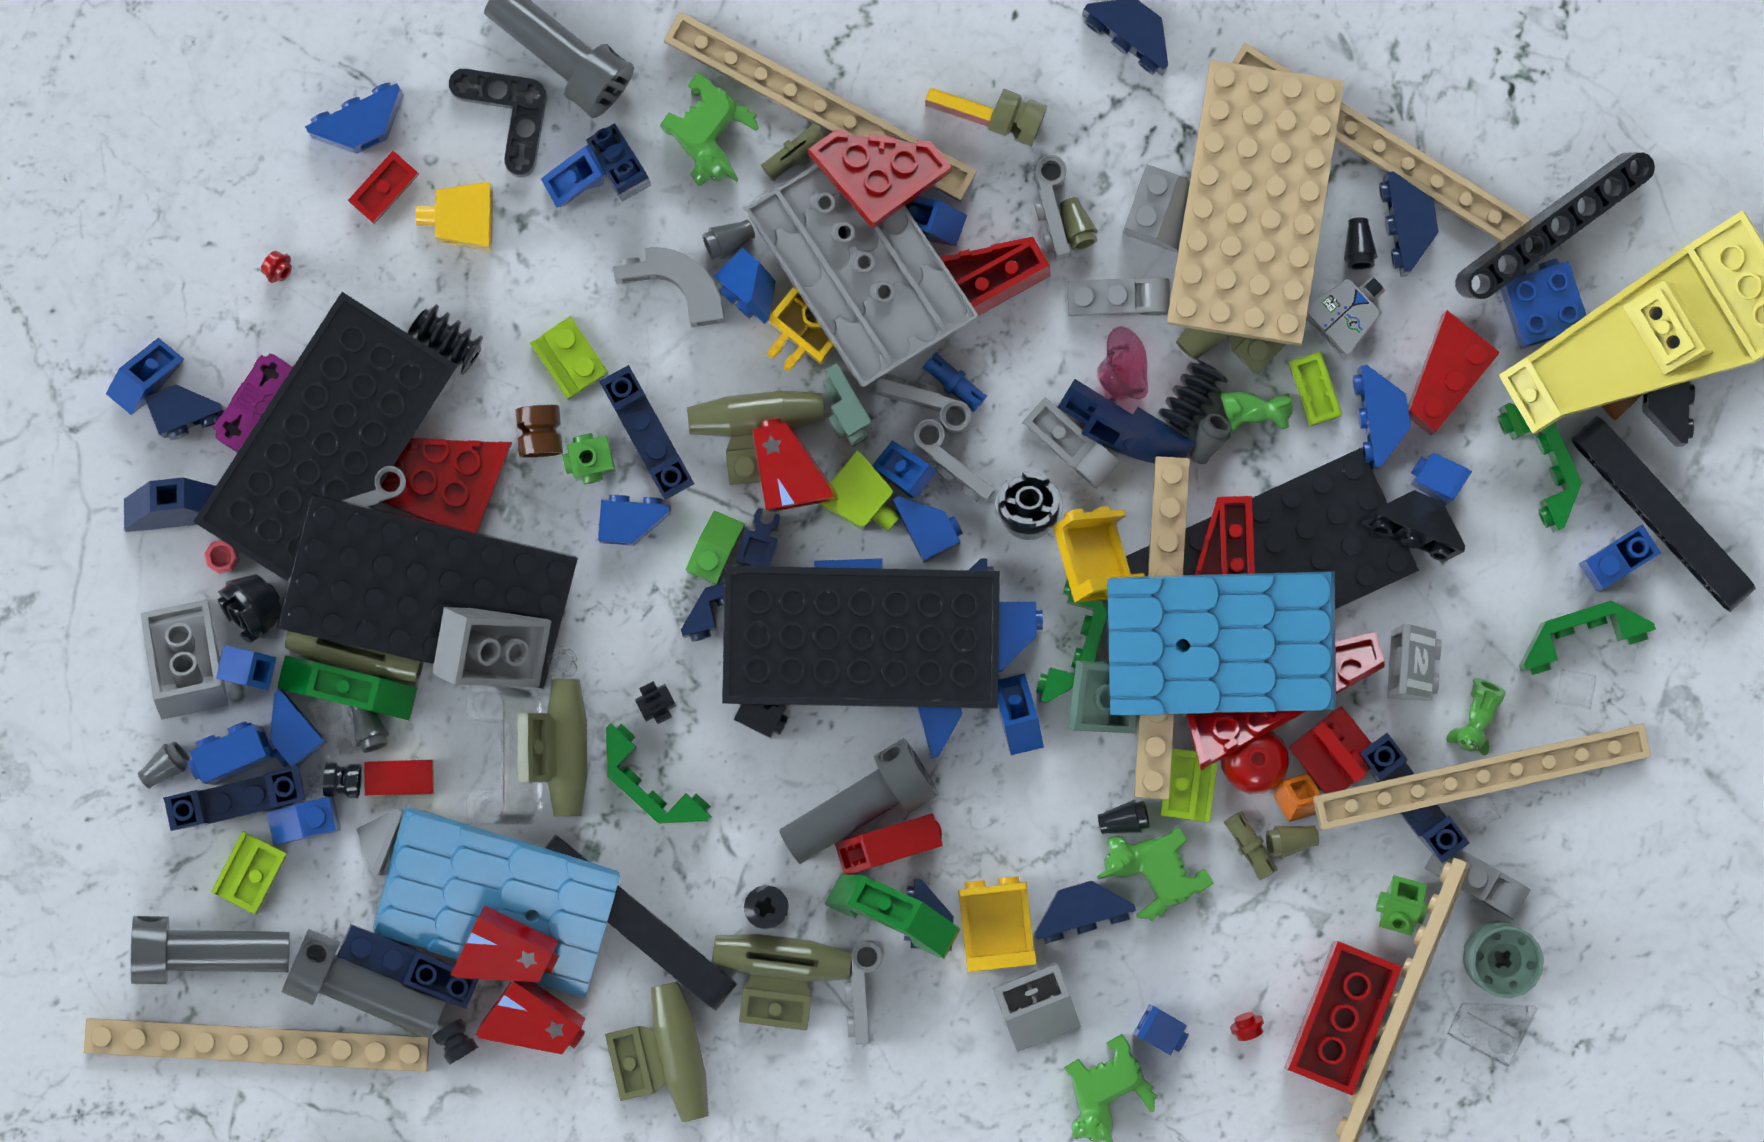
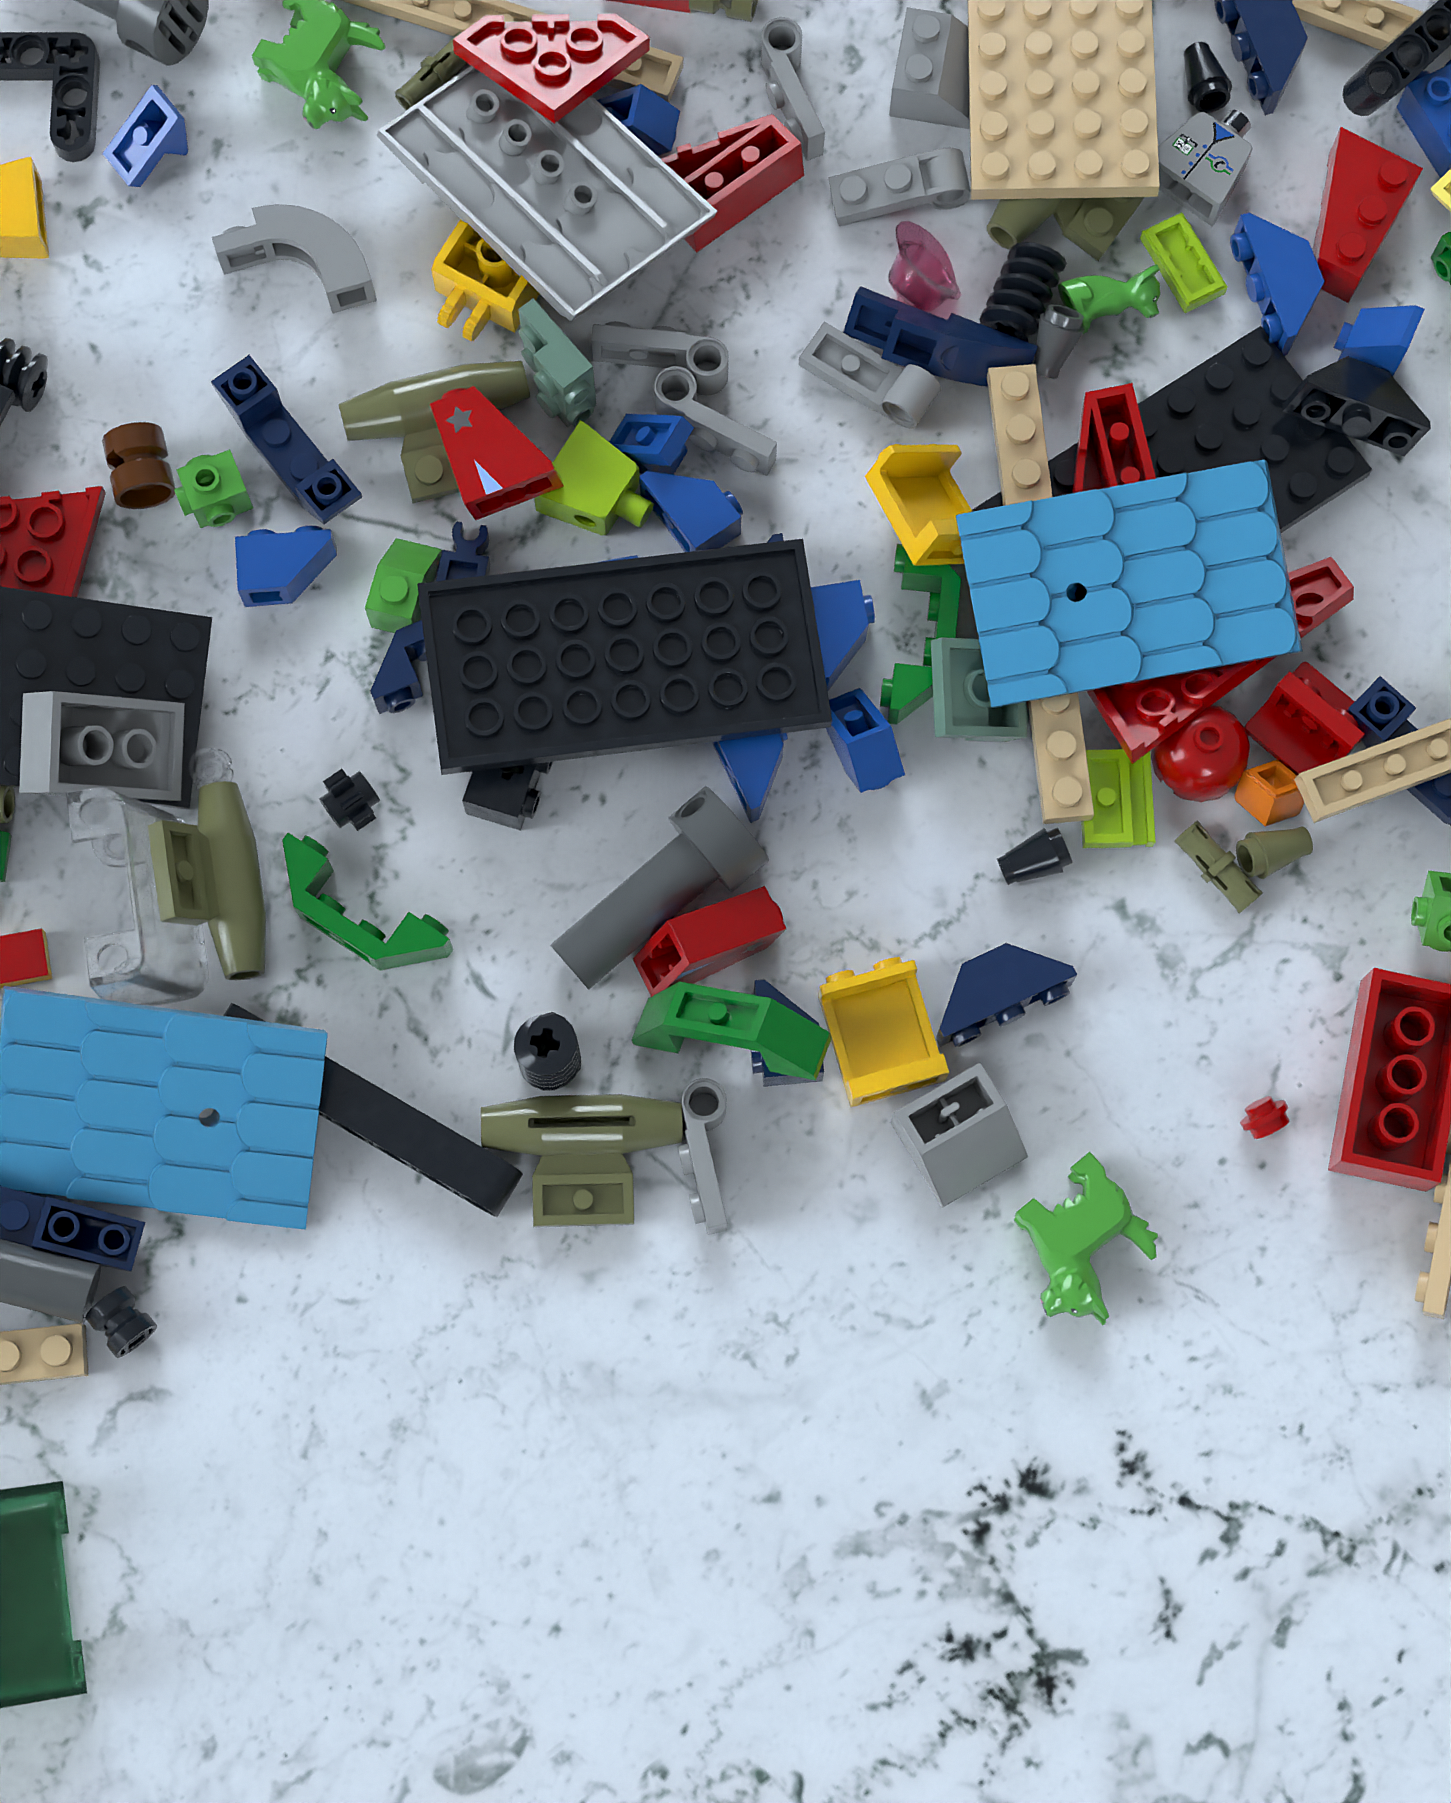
camera: 10 degrees left, 10 degrees down
(505, 950) = (173, 1171): red slope -> none
(532, 1019) = (228, 1269): red slope -> none
(569, 358) = (169, 372): lime plate -> none
(618, 162) = (211, 115): dark blue slope -> none
(667, 1055) = (433, 1292): olive plate -> none
(726, 238) = (362, 190): dark grey cone -> none
(748, 283) = (397, 235): blue slope -> none
(954, 381) = (697, 321): blue pin -> none
(1028, 505) = (827, 459): black cone -> none
(1077, 225) = (831, 106): olive cone -> none
(1160, 867) = (1099, 914): bright green animal -> none
(1161, 1030) = (1144, 1138): blue slope -> none
(1412, 663) = (1390, 581): light grey slope -> none

